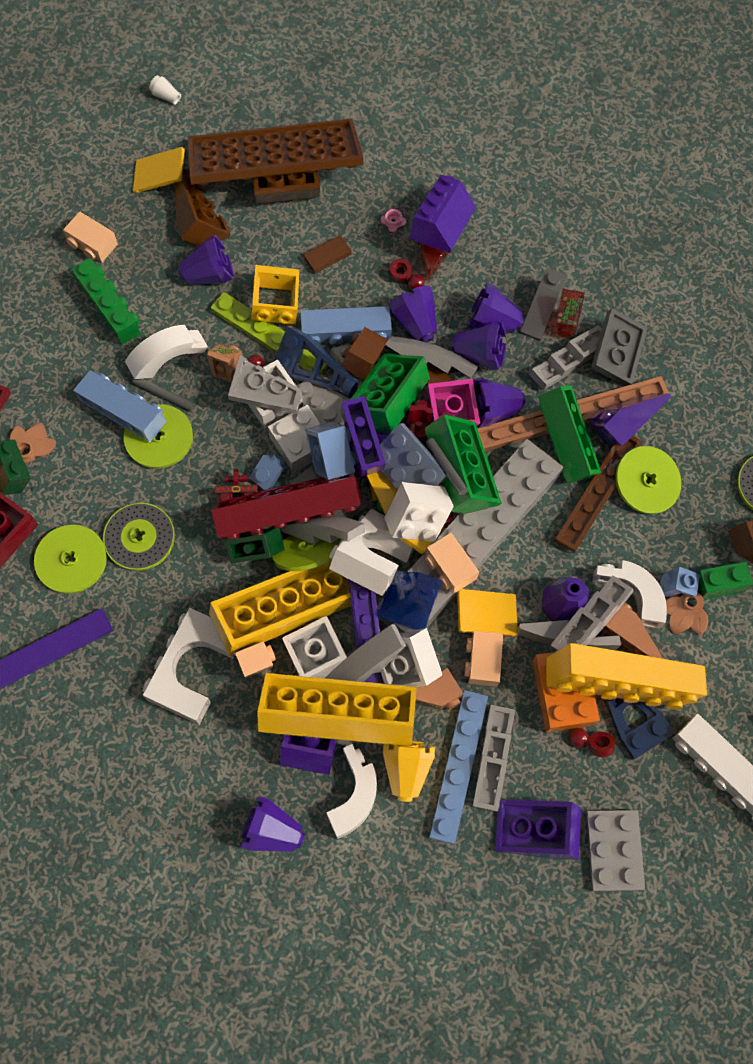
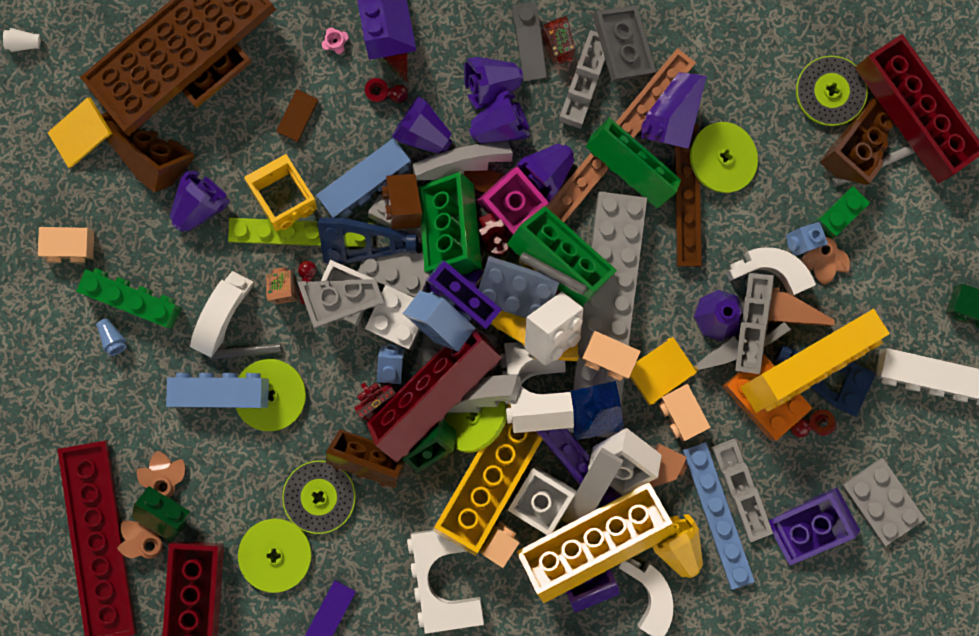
camera: 30 degrees left, 15 degrees up
(71, 322) = (111, 338): none -> medium blue cone
(195, 526) = (363, 459): none -> reddish brown slope

